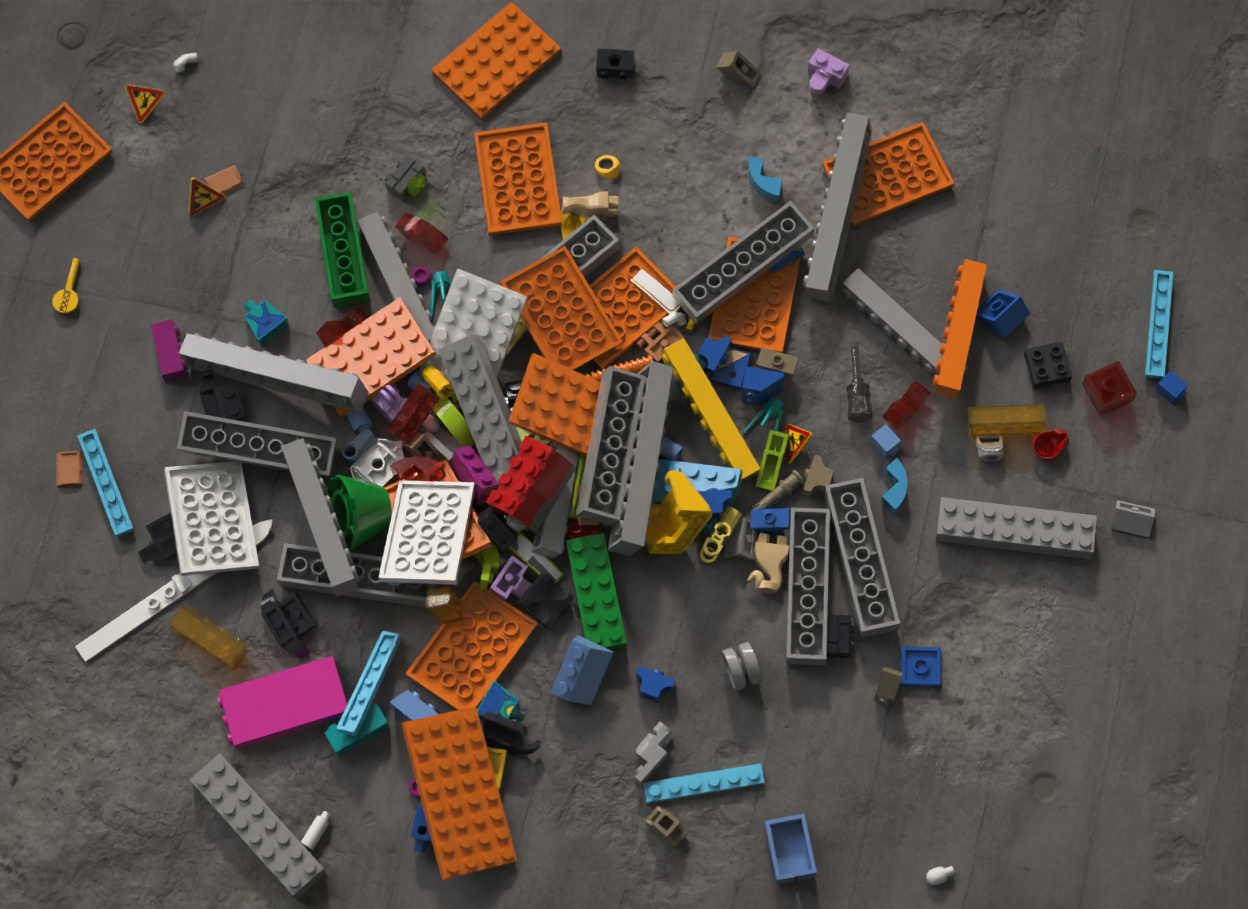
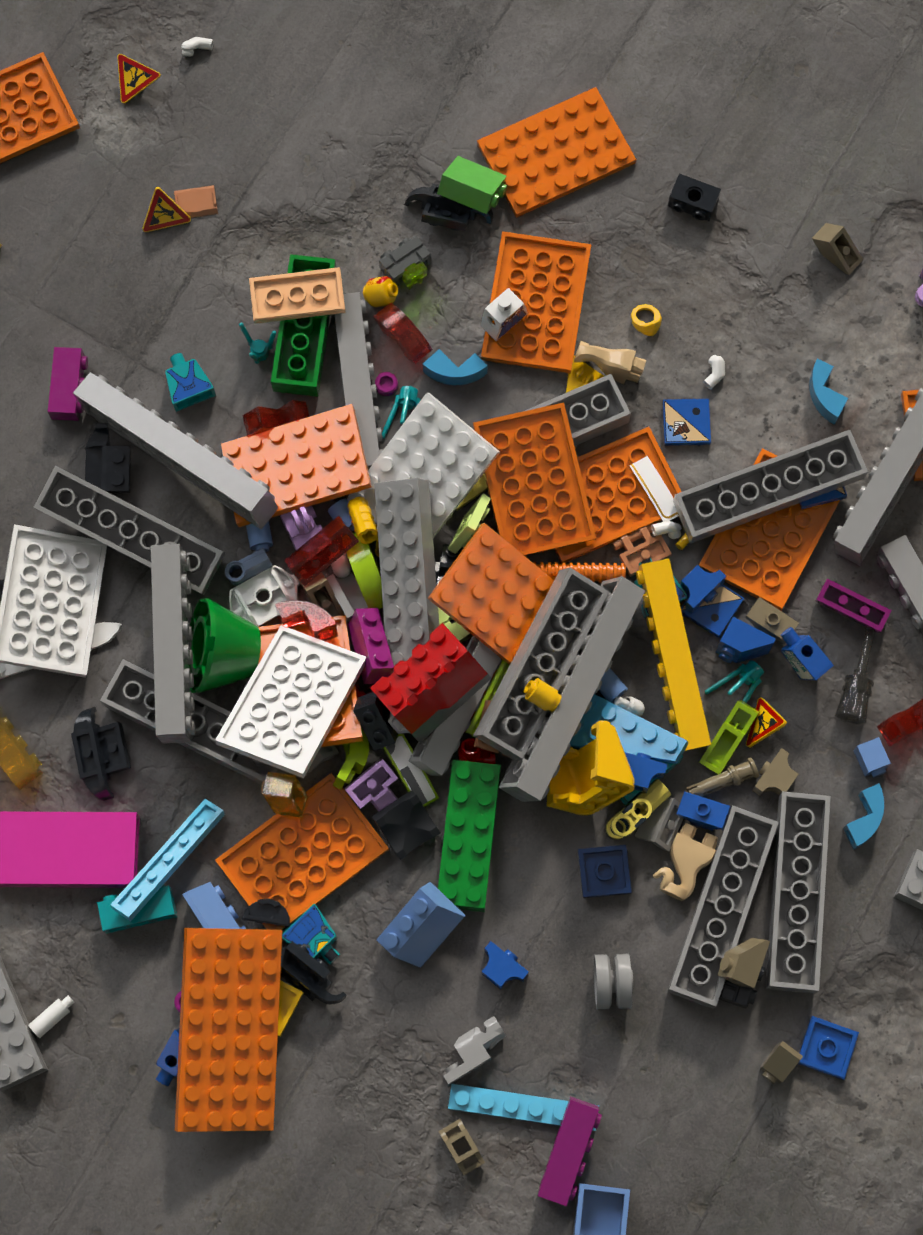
camera: 15 degrees right, 5 degrees up
(311, 278) = (258, 349): none -> teal plant
(330, 227) = (297, 295): none -> light nougat tile
(393, 206) = (380, 291): none -> yellow head
(426, 126) = (444, 211): none -> black plate
(439, 104) = (472, 185): none -> bright green brick
(459, 699) = (267, 912): none -> black tile
(464, 252) = (443, 370): none -> dark azure brick
(496, 191) = (505, 311): none -> white torso
(521, 359) = (470, 523): none -> yellowish green plate
(619, 466) = (542, 695): none -> yellow brick
(664, 235) = (686, 422): none -> tile
(676, 190) = (718, 371): none -> white arm
(689, 458) = (630, 704): none -> white cylinder
(709, 589) = (604, 871): none -> dark blue plate
(748, 802) = (568, 1151): none -> magenta brick
(810, 380) = (804, 655): none -> blue torso
(835, 332) = (853, 606): none -> magenta brick
(837, 620) = (743, 963): none -> dark tan slope

